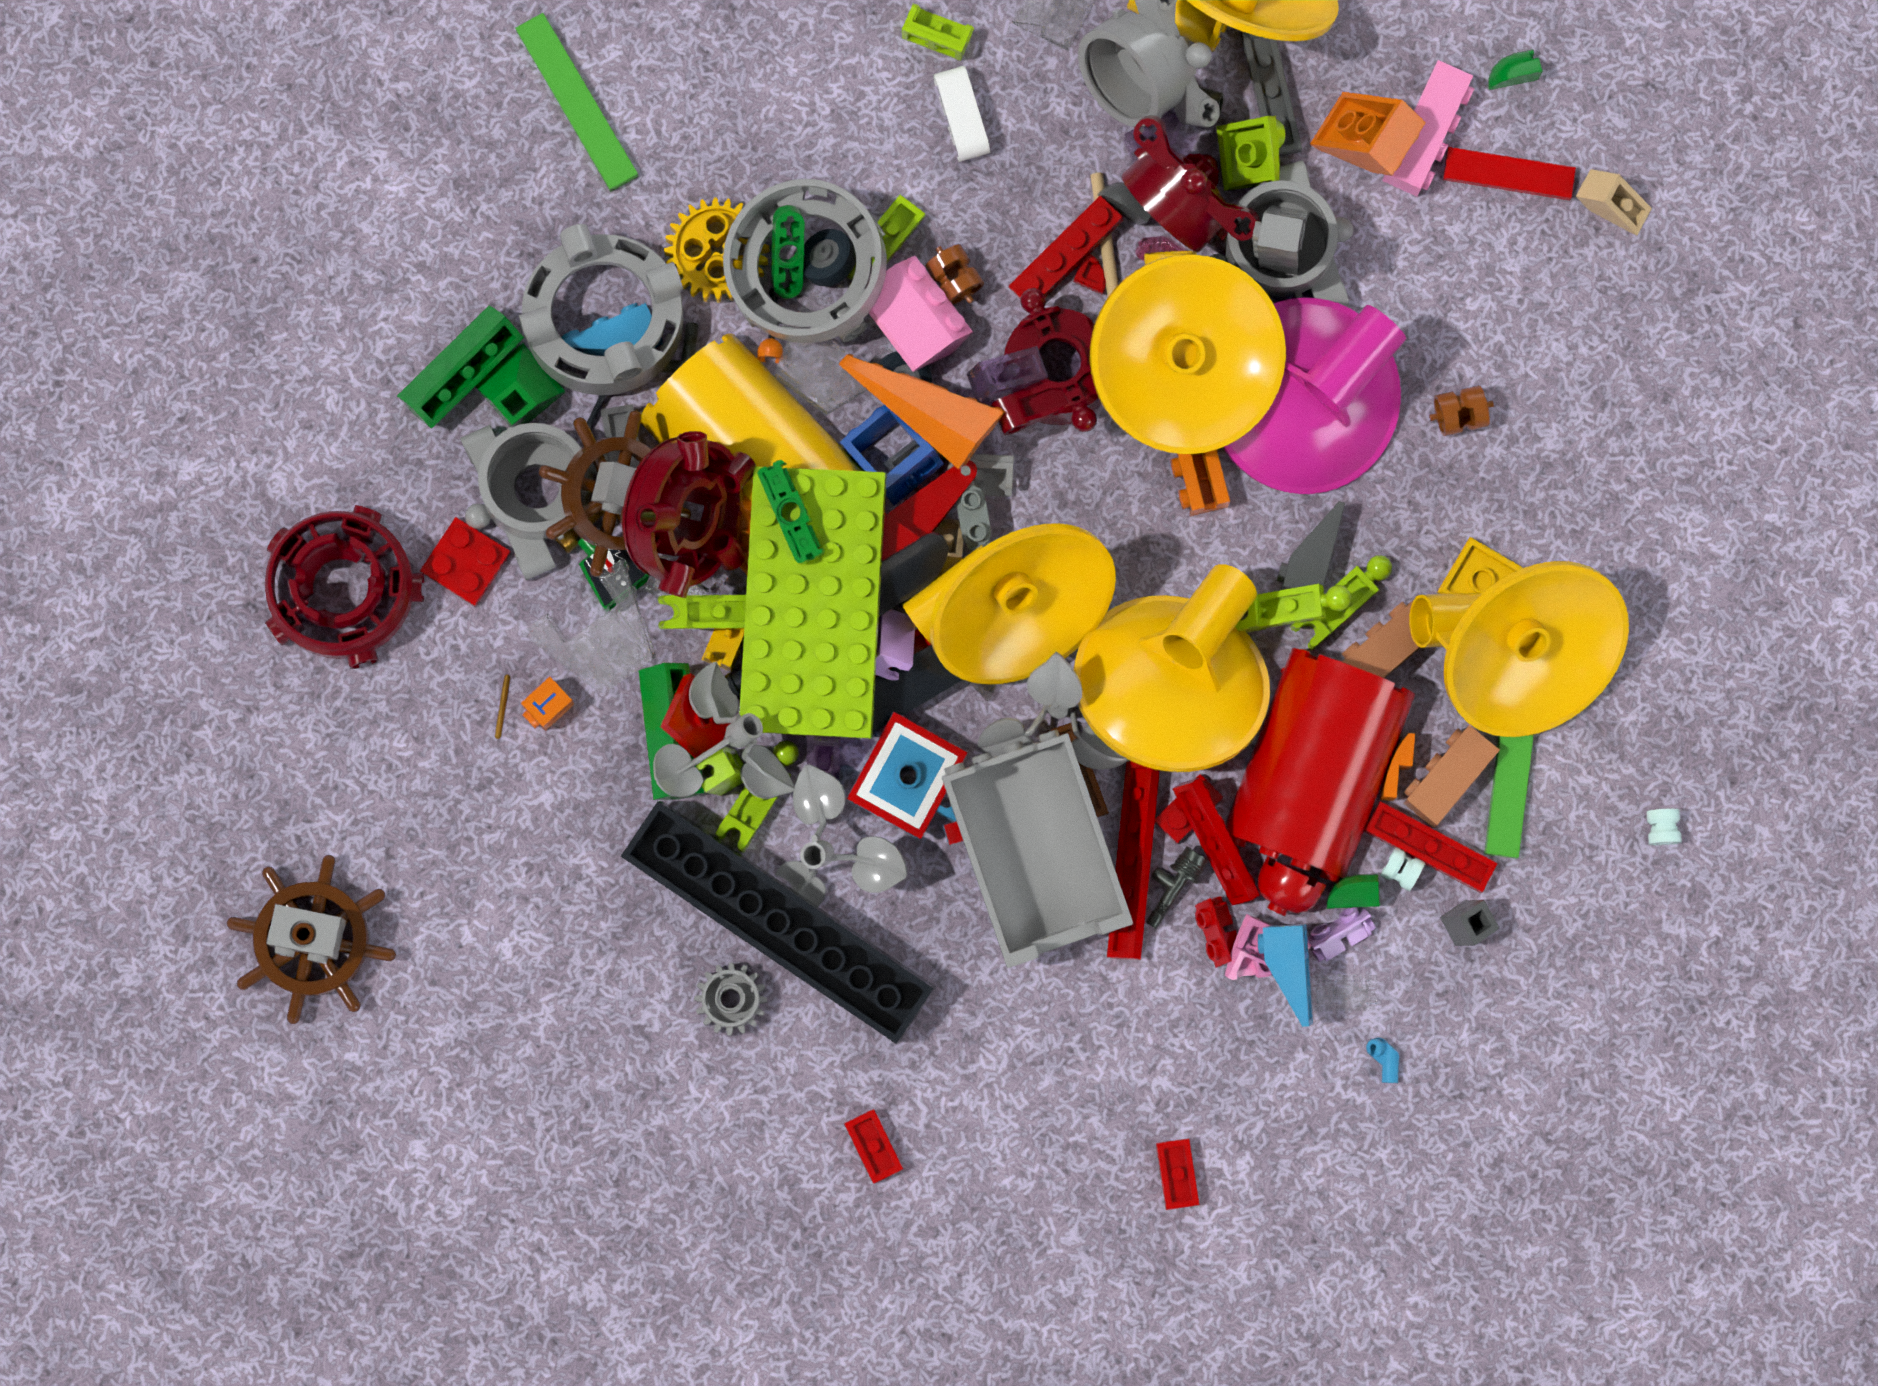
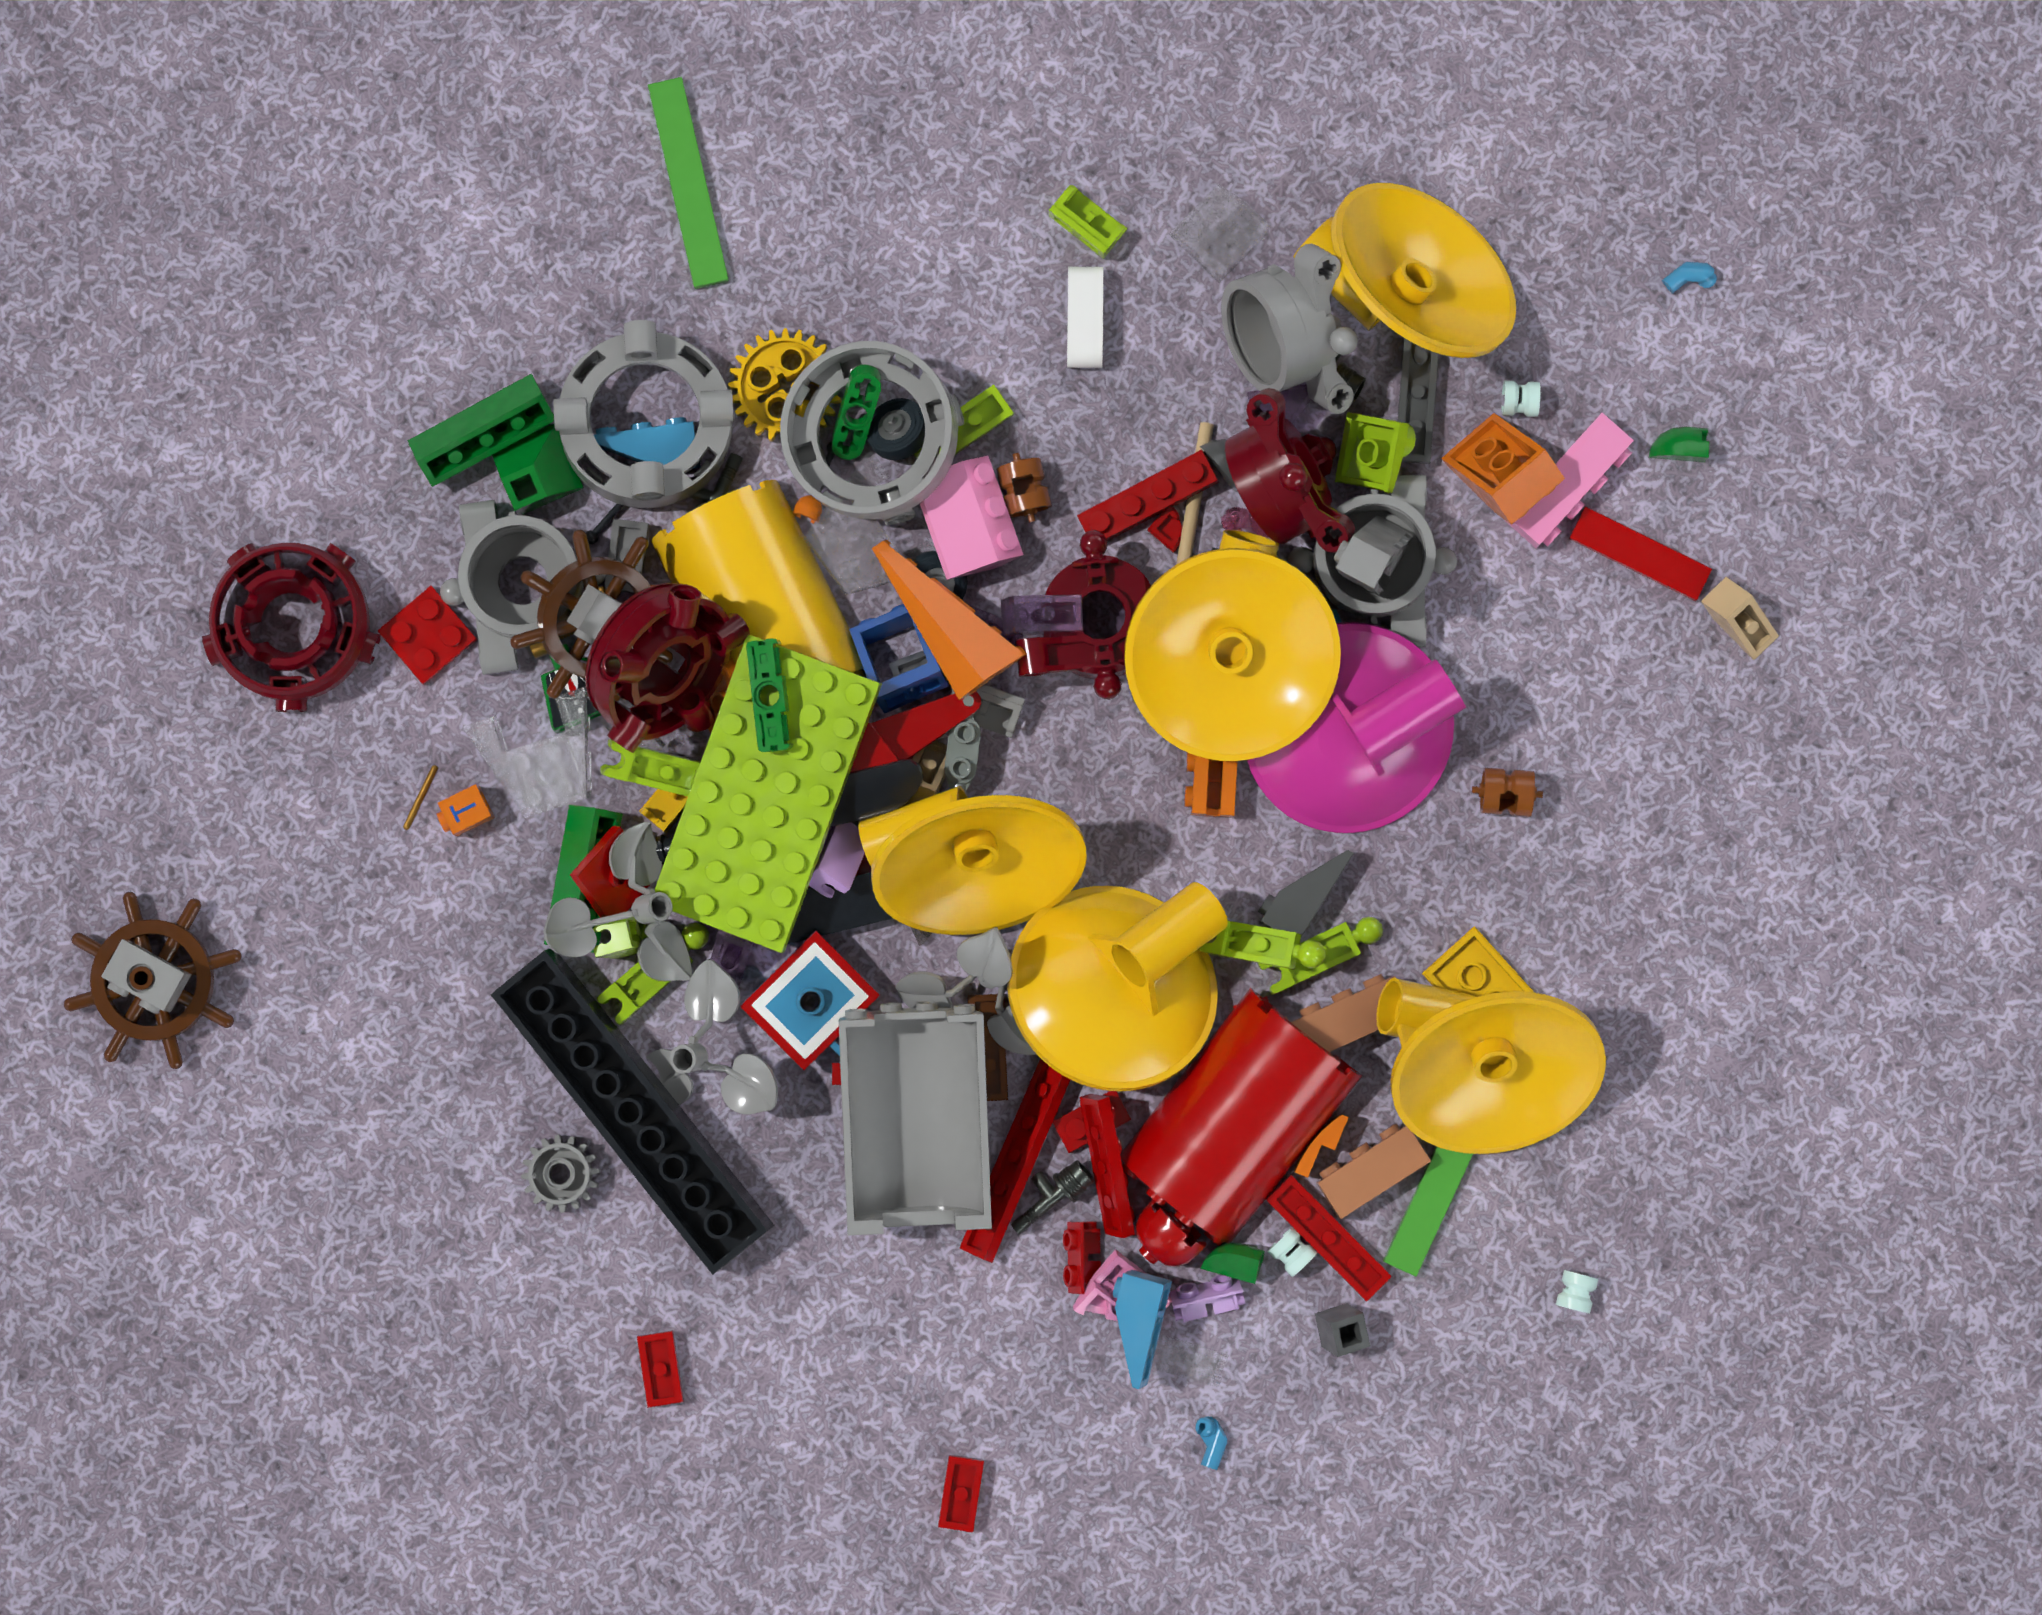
camera: 25 degrees right, 5 degrees up
(1363, 70) = (1529, 398): none -> light aqua wheel

